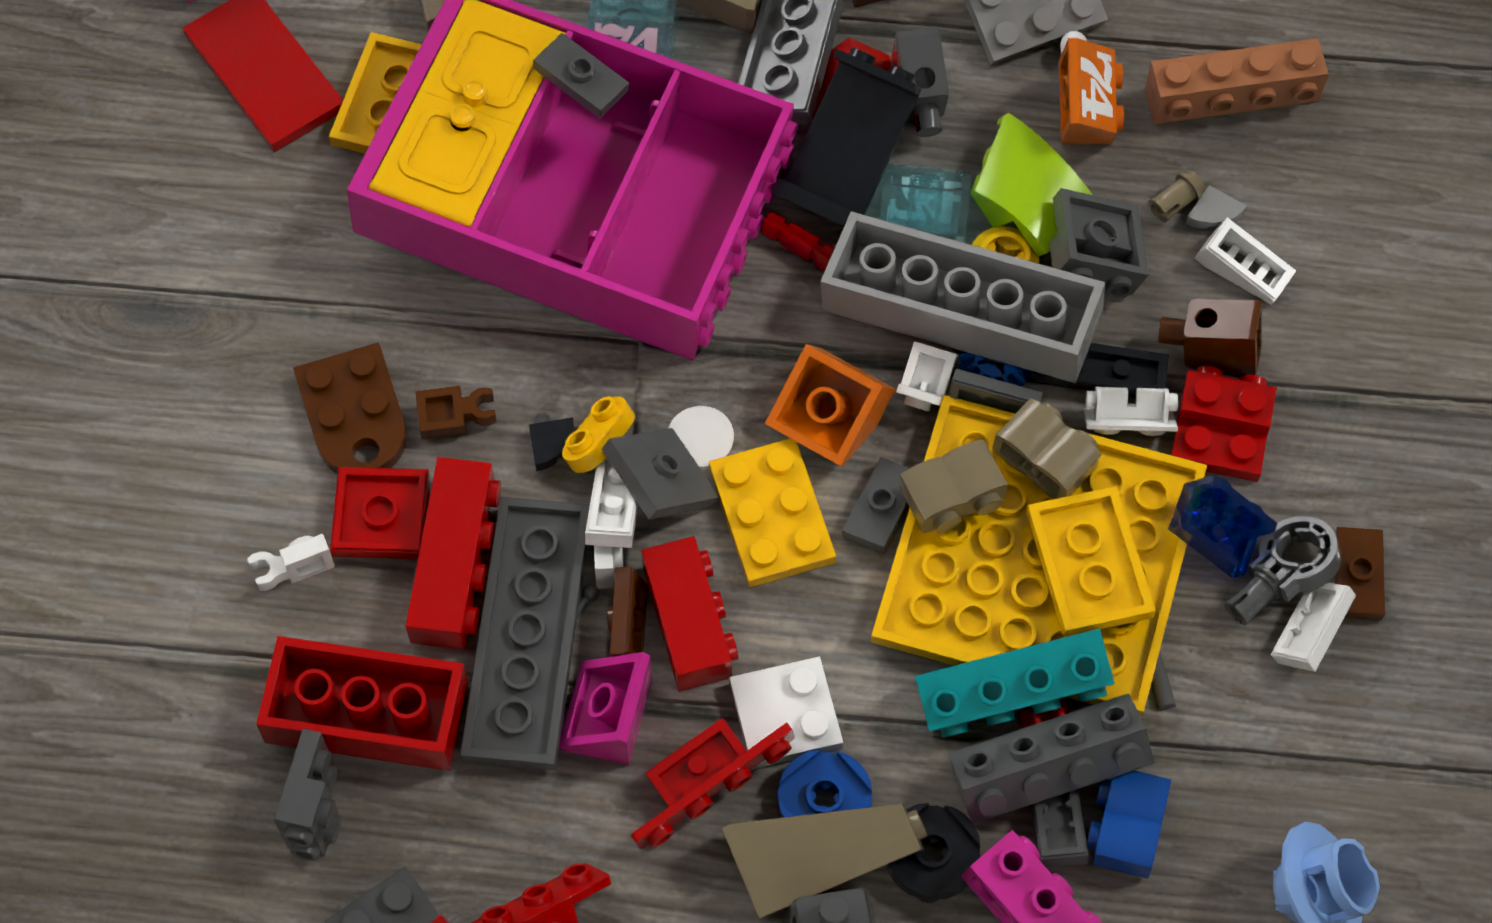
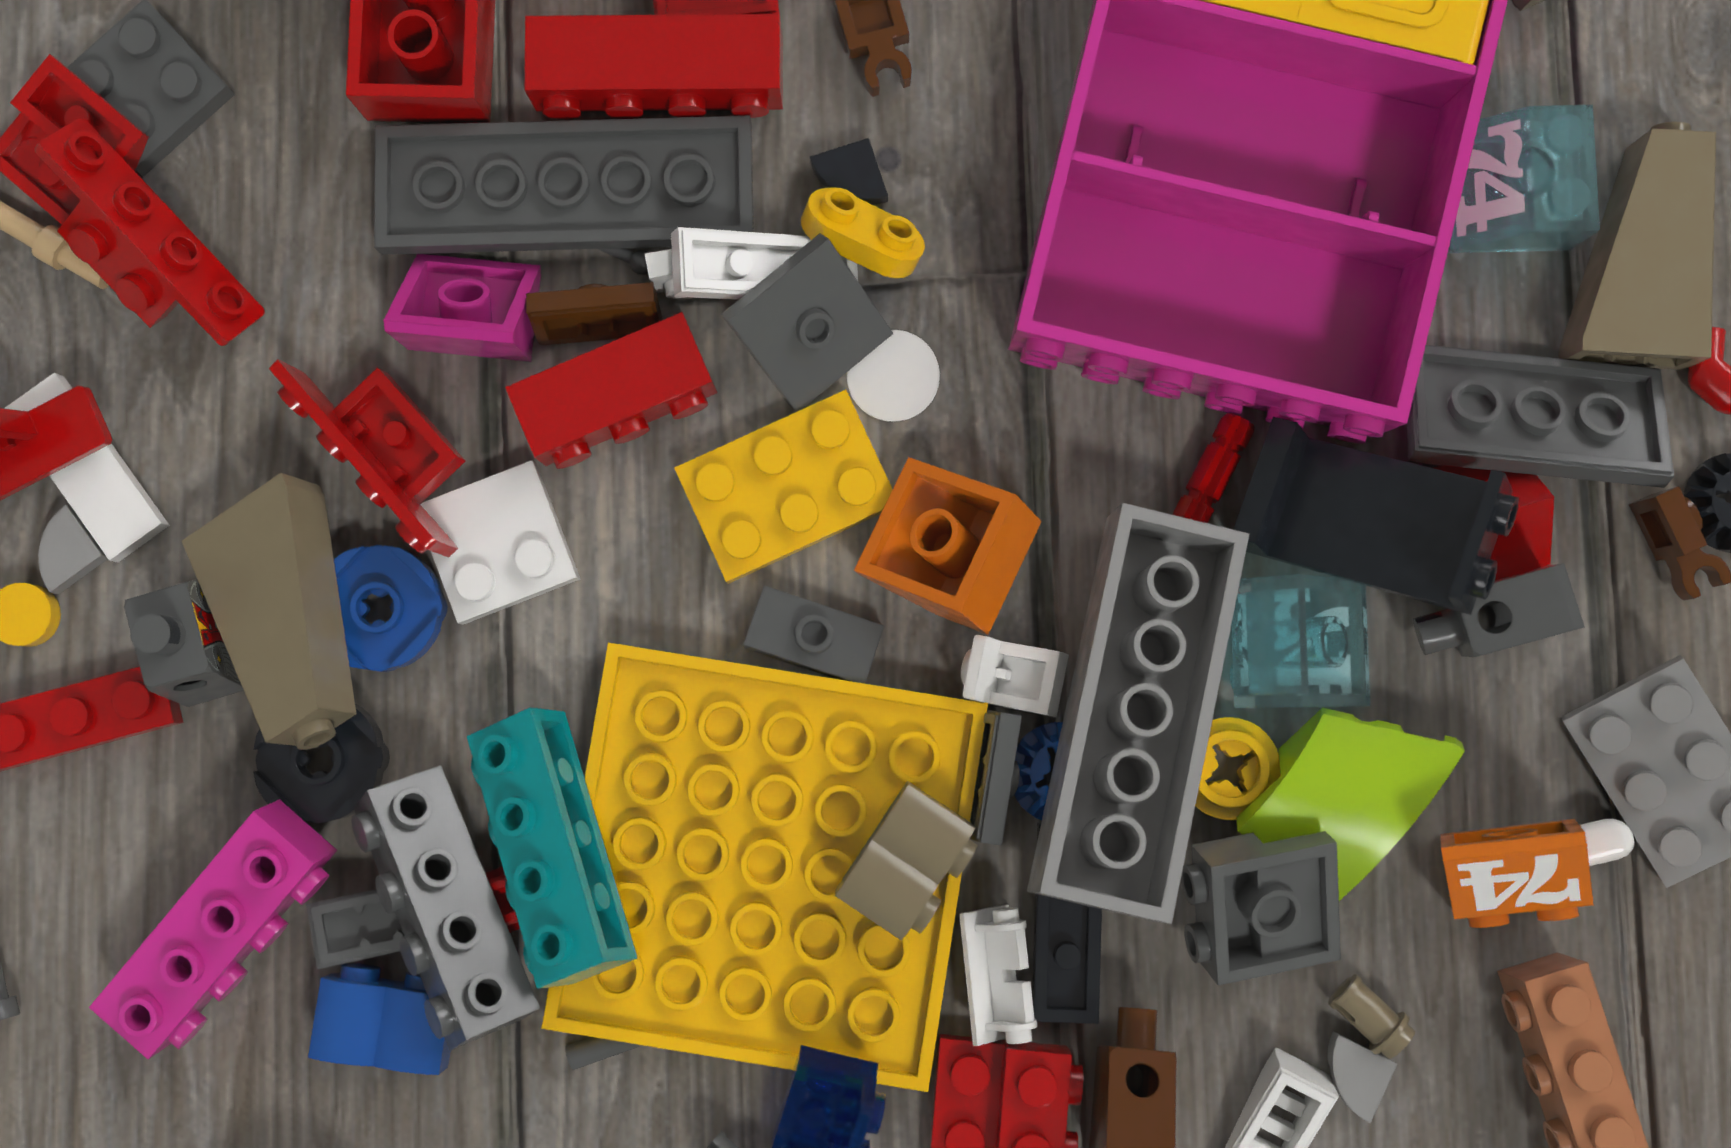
camera: 85 degrees right, 20 degrees up
(580, 75) = (1395, 94): dark grey plate -> none
(953, 486) = (829, 732): dark tan brick -> none
(1090, 561) = (743, 937): yellow plate -> none

